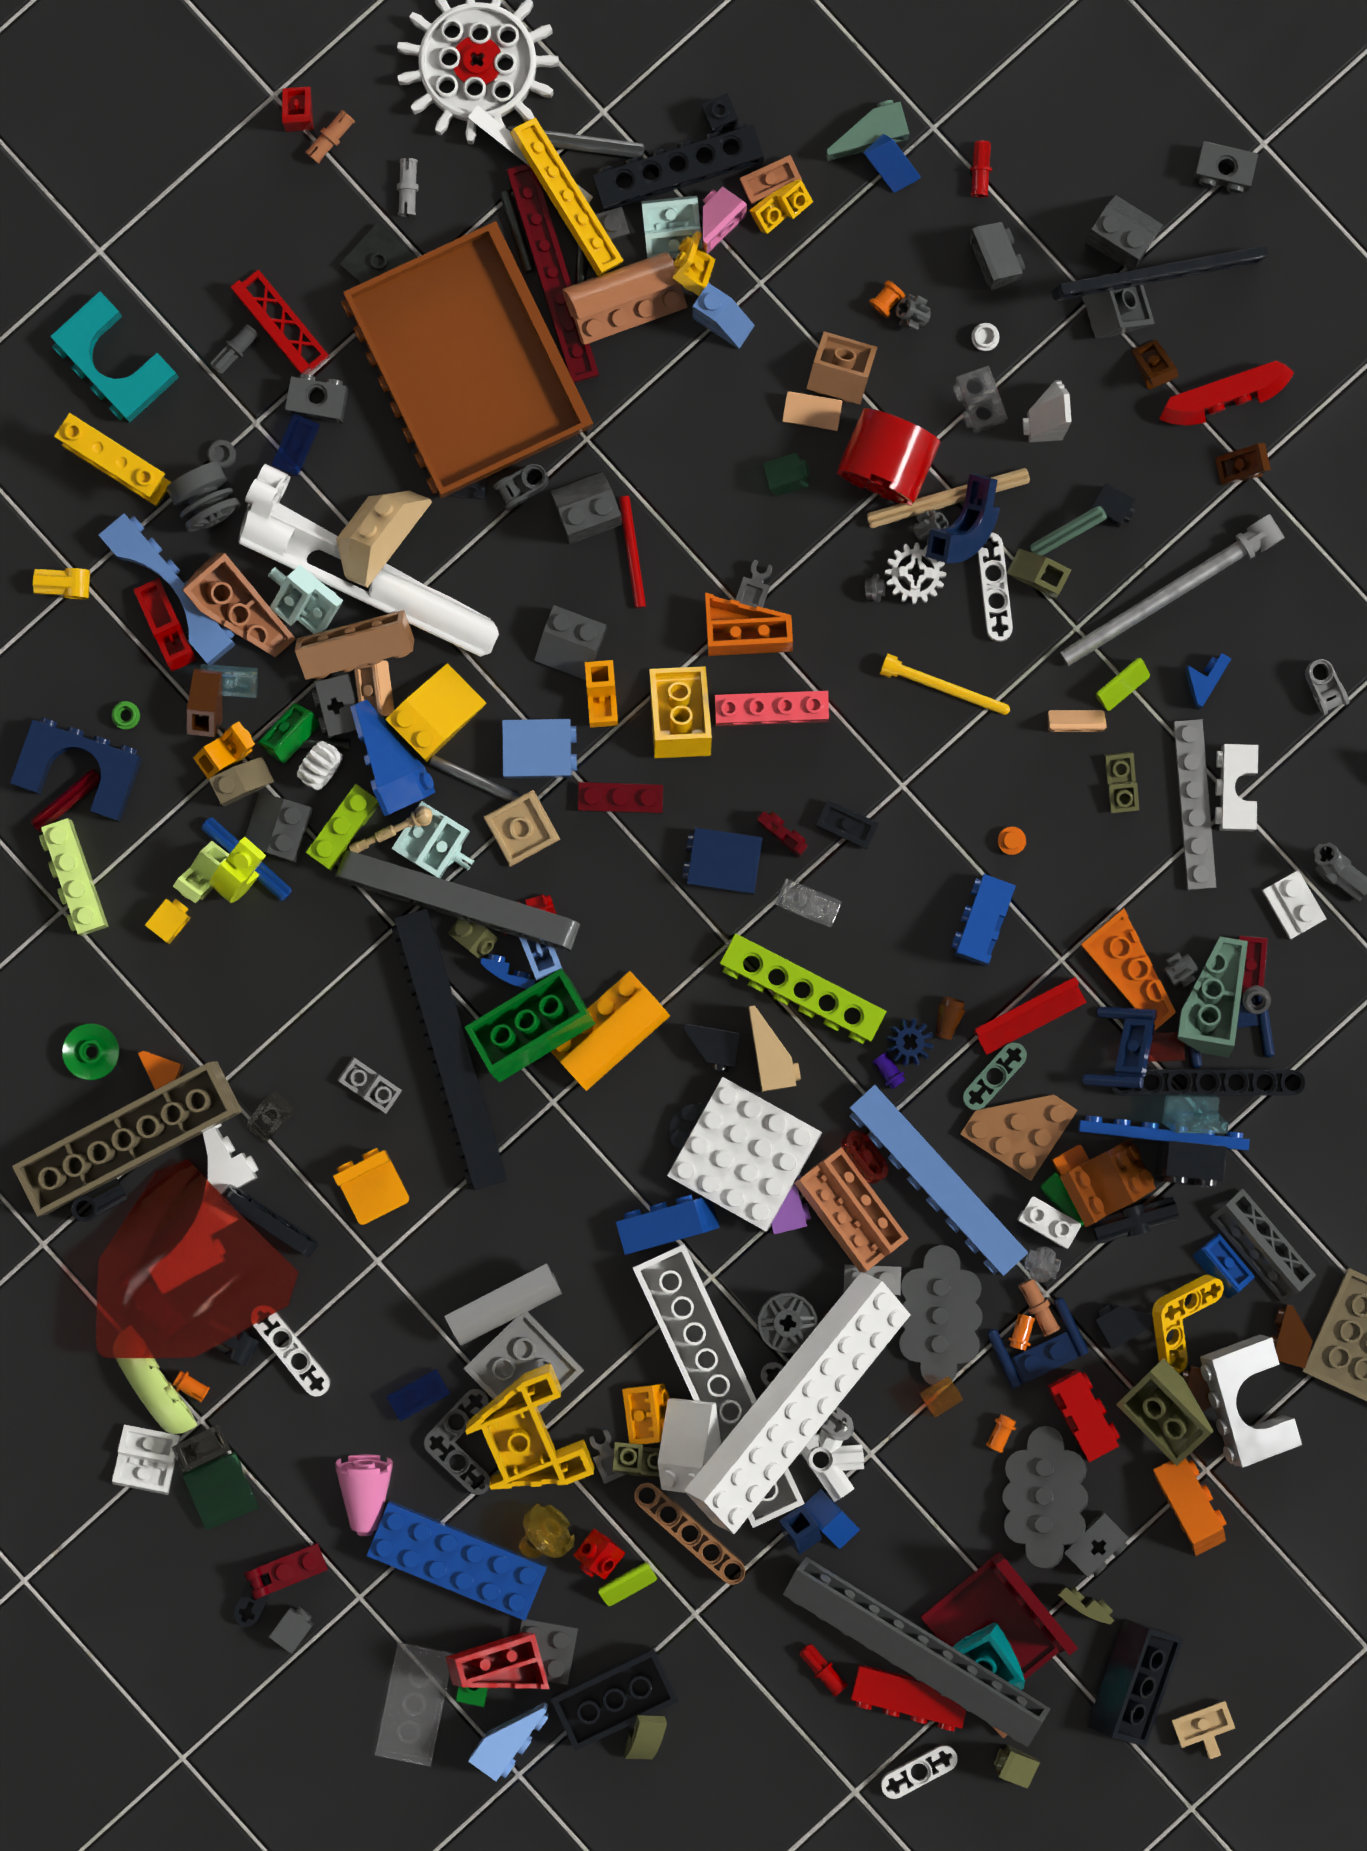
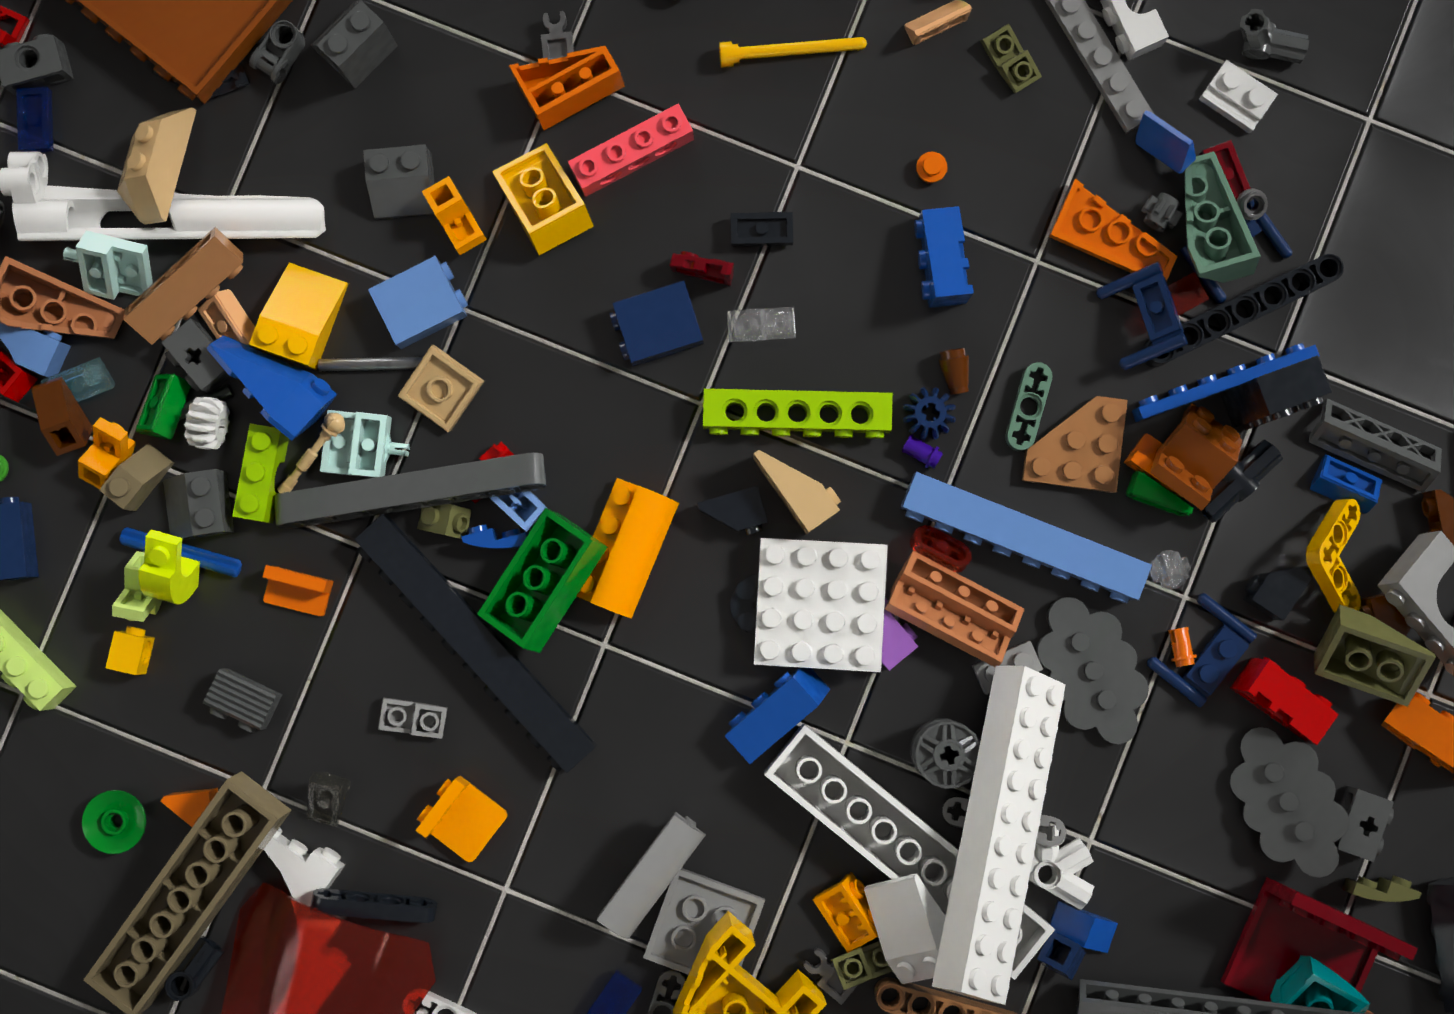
camera: 25 degrees left, 0 degrees up
(240, 1004) = (242, 700): none -> dark grey brick
(325, 936) = (297, 590): none -> orange panel
(620, 797) = (525, 312): dark red plate -> none
(632, 552) = (420, 66): red bar -> none
(941, 1396) = (1135, 752): clear orange panel -> none
(1001, 1433) = (1211, 757): orange pin -> none
(1030, 1016) = (1034, 330): red fence -> none
(1039, 1307) = (1186, 613): nougat pin -> none
(1049, 1222) = (1157, 524): white bracket -> none
(1193, 1114) = (1247, 348): clear light blue bracket -> none
(1210, 915) = (1165, 142): none -> blue slope

